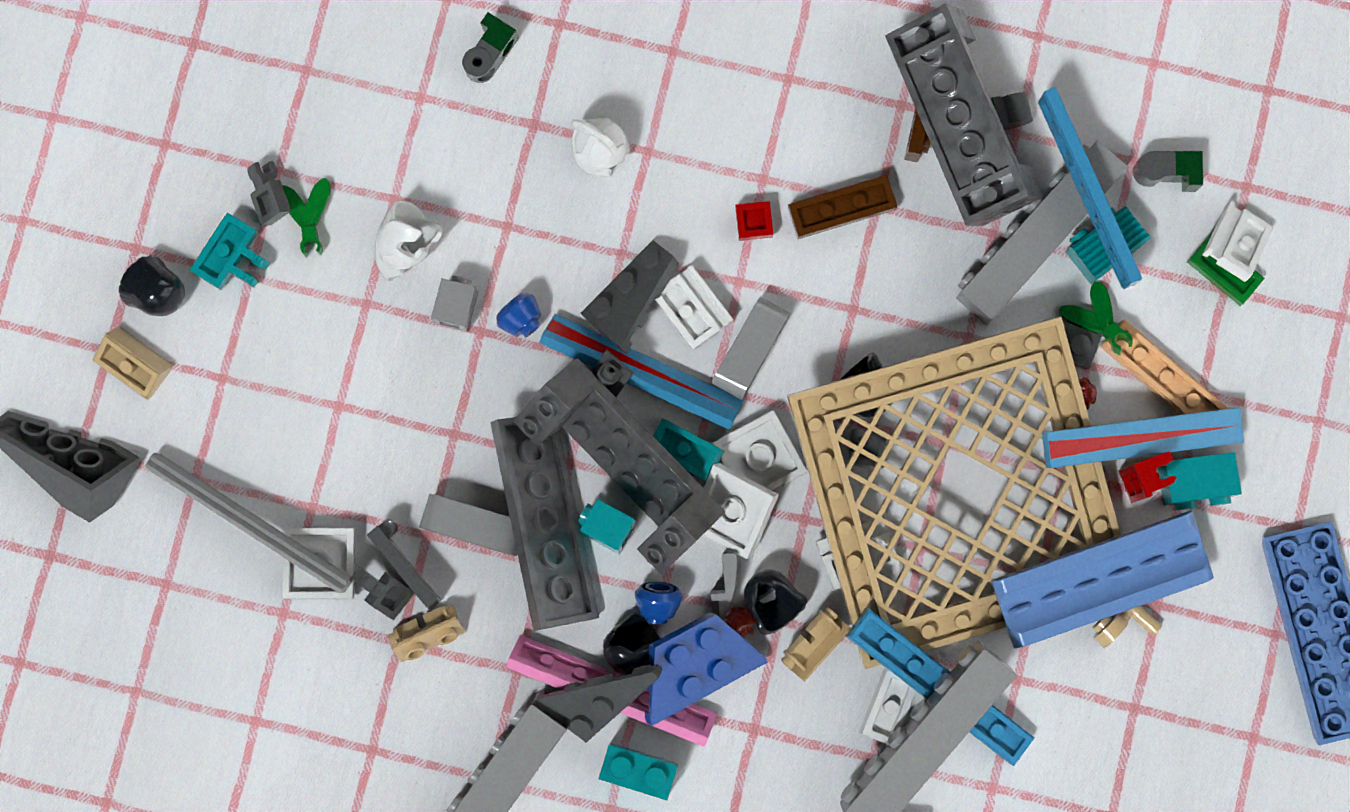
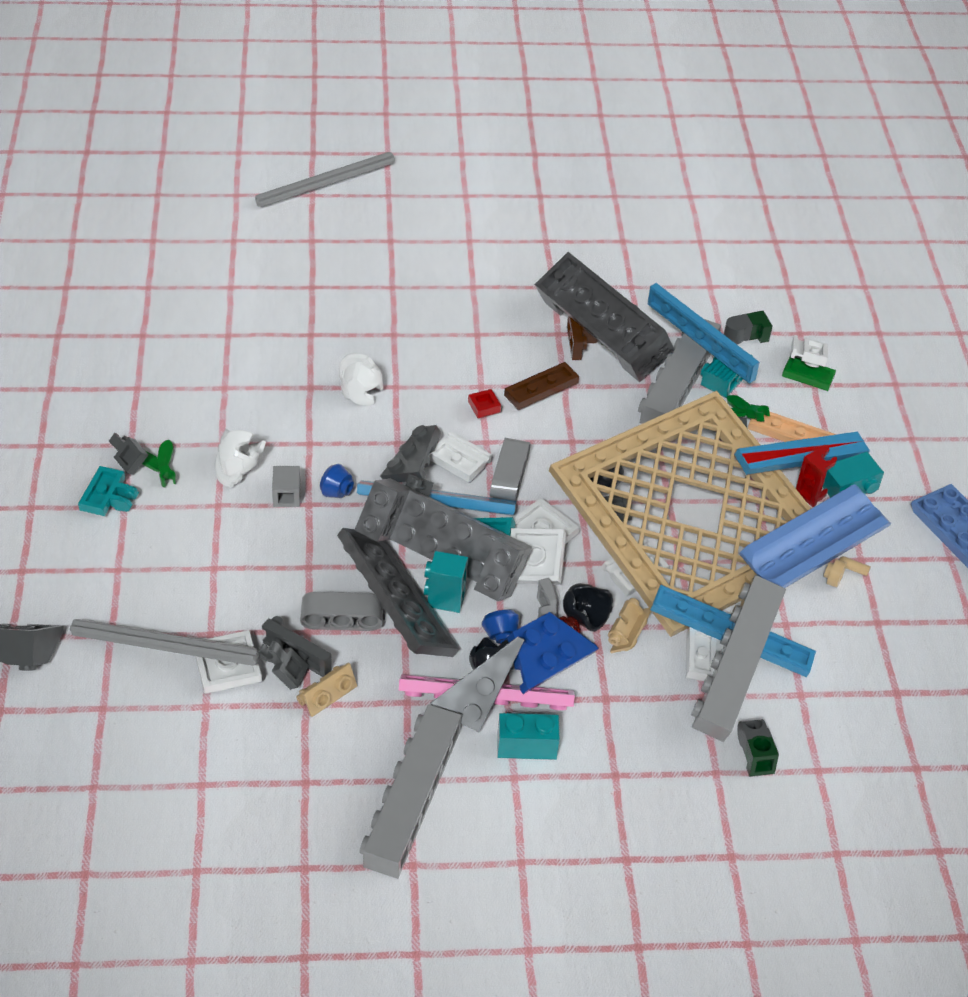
camera: 20 degrees left, 35 degrees down
(132, 362) = (42, 572): tan slope -> none
(151, 287) = (50, 521): black hair -> none
(491, 50) = (268, 350): leg -> none

